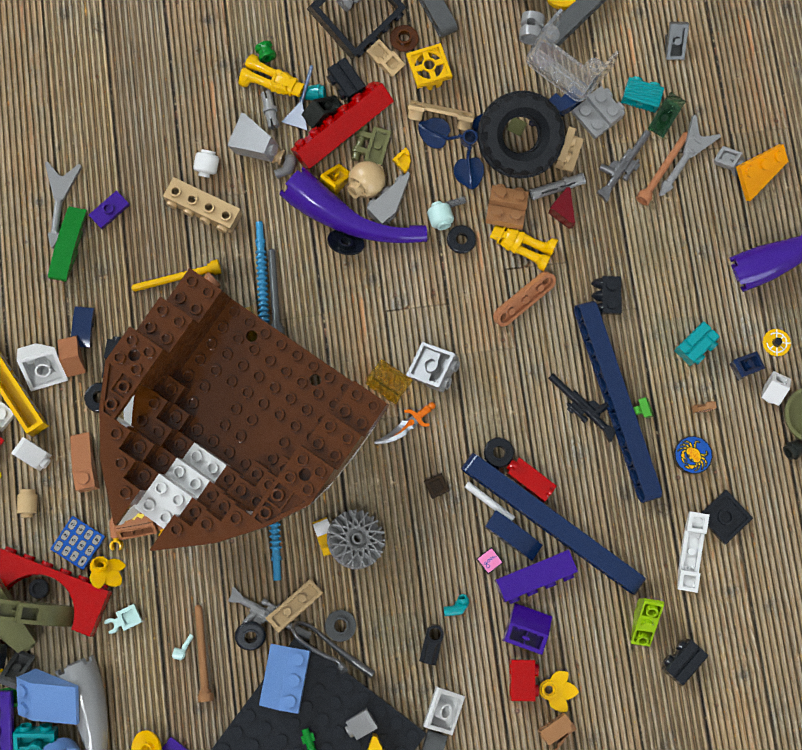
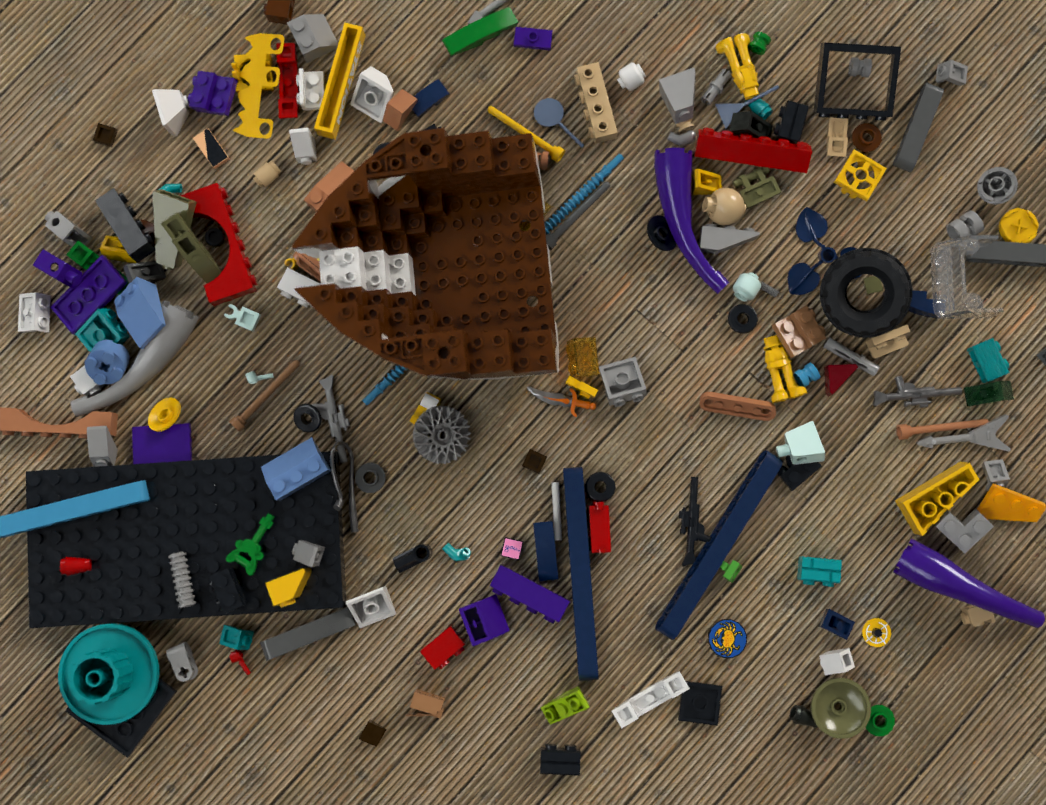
camera: 60 degrees right, 5 degrees up
(78, 543) = (270, 236): tile -> none
(106, 572) = (264, 276): yellow plate -> none
(138, 554) = (292, 280): none -> white brick
(178, 246) = (550, 113): none -> sand blue piece
(294, 606) = (356, 431): tan tile -> none
(402, 160) = (766, 221): yellow tile -> none
(416, 110) = (842, 239): tan brick -> none
(416, 400) = (585, 390): none -> yellow plate
(544, 229) = (806, 375): none -> dark azure wheel
(560, 692) = (460, 683): yellow plate -> none
(594, 276) = (802, 445): none -> light aqua torso
(599, 112) = (942, 338): light grey plate -> none
(709, 406) = (776, 619): medium nougat tile -> none
(711, 217) = (933, 498): none -> yellow wedge
(755, 217) = (964, 533): none -> light grey brick

